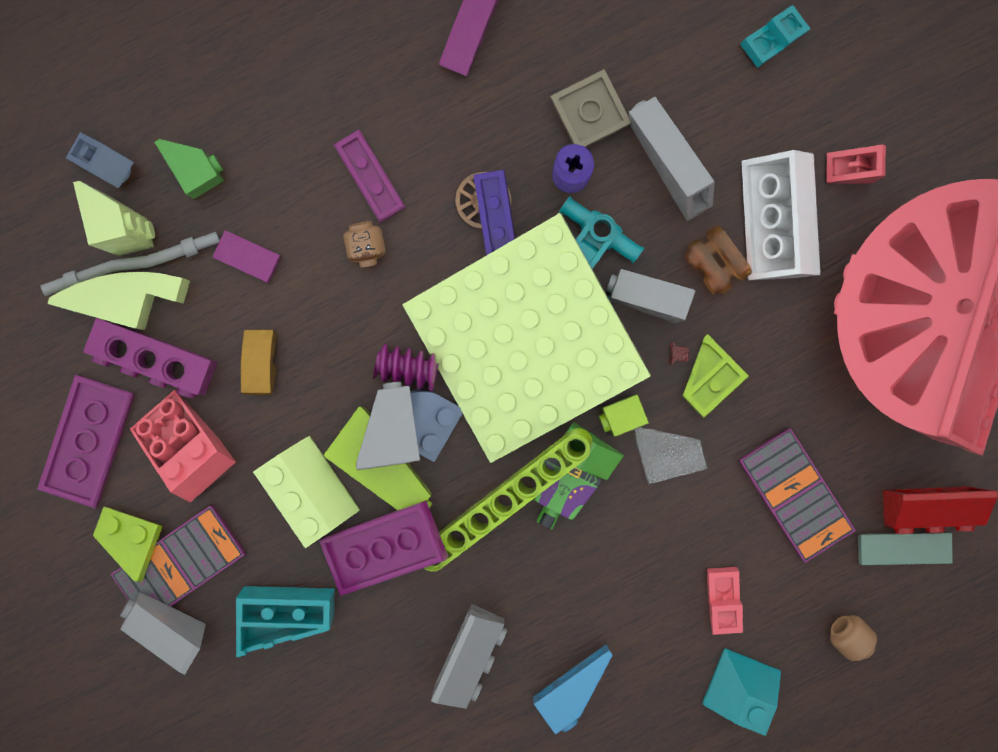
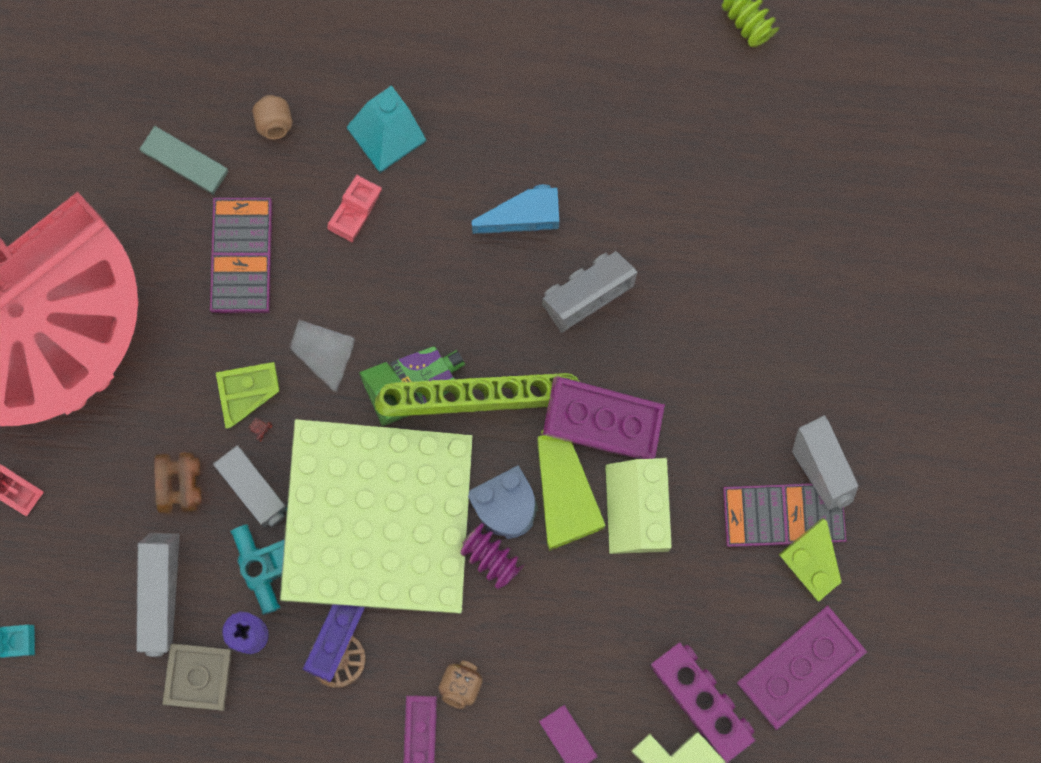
camera: 150 degrees left, 10 degrees down
(181, 447) = (721, 611): coral slope -> none
(257, 362) = (613, 640): pearl gold slope -> none
(281, 614) = (720, 418): teal wedge -> none
(390, 430) = (536, 509): light grey slope -> none
(623, 416) = (338, 405): lime brick -> none
(781, 216) = (101, 486): white slope -> none
(937, 508) = (137, 175): red slope -> none

